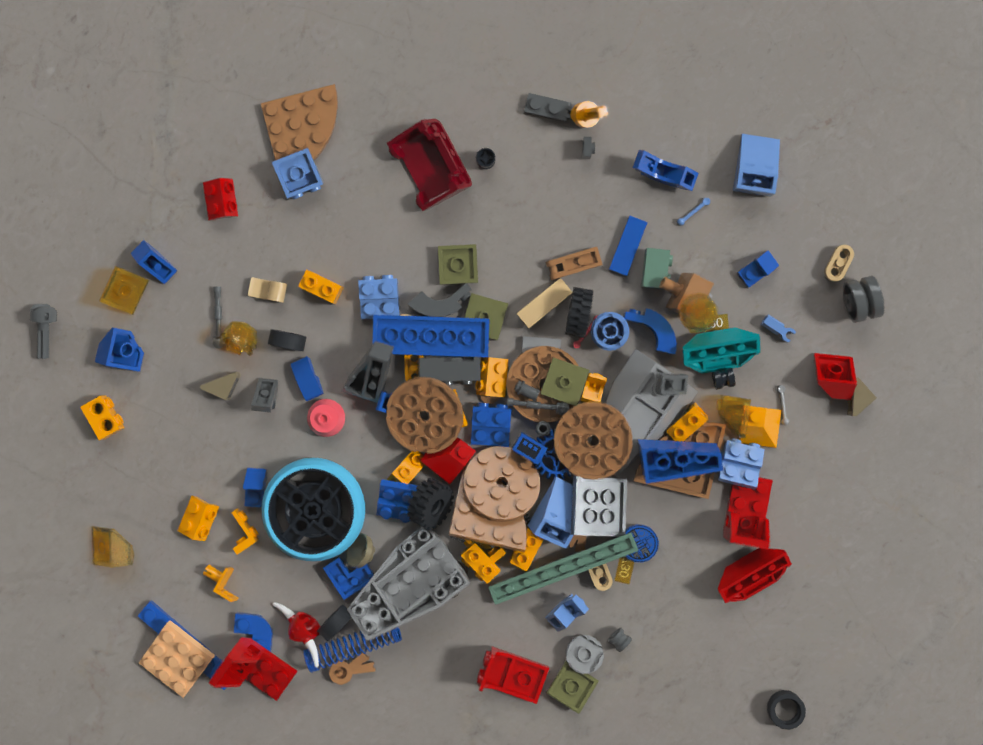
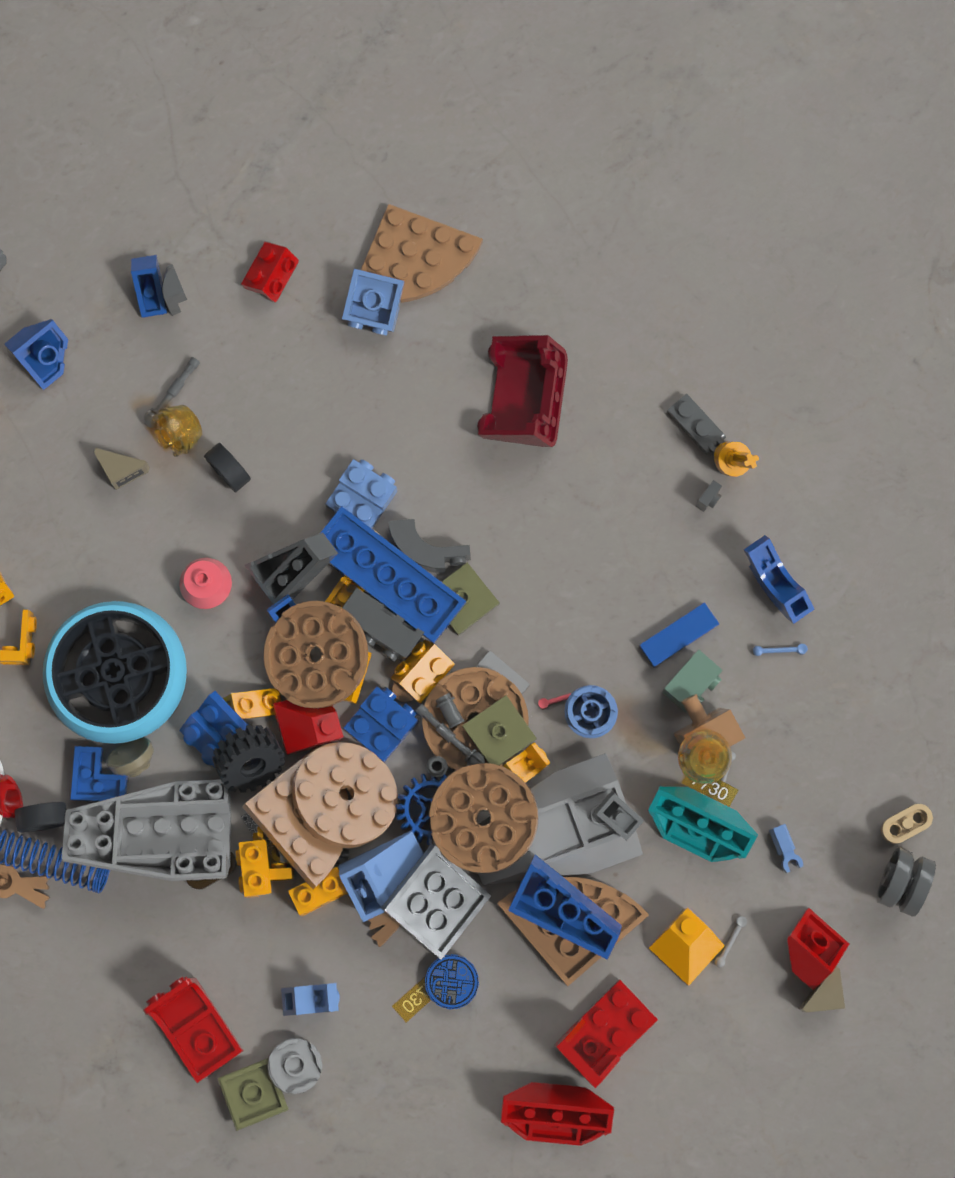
camera: 35 degrees right, 10 degrees down
(124, 290) = (94, 291): clear yellow slope -> none
(170, 254) = (173, 290): none -> dark grey slope
(254, 486) = (71, 599): blue slope -> none
(265, 395) = (158, 511): dark grey slope -> none
(267, 289) = (247, 401): tan panel -> none
(306, 378) = (216, 525): blue slope -> none
(321, 286) = (307, 438): light orange brick -> none
(458, 264) = (475, 520): olive plate -> none
(486, 155) = (590, 424): black wheel -> none
(529, 448) = (405, 776): slope -> none
(544, 303) = (539, 630): tan slope -> none
(563, 568) = (344, 944): sand green plate -> none
(574, 263) = (605, 611): medium nougat plate -> none
(579, 312) = (571, 665): black tyre -> none
(598, 572) = (381, 980): tan plate -> none
(619, 639) = (347, 1078): dark grey wheel -> none
(660, 327) = (650, 744): blue arch -> none
(688, 423) = (605, 880): light orange bracket -> none
(723, 378) = (683, 860): black wheel -> none
(734, 413) = (667, 906): clear yellow slope -> none
(741, 463) = (634, 972): medium blue plate -> none
(757, 165) = (886, 648): medium blue slope -> none
(758, 269) = (809, 765): blue slope -> none

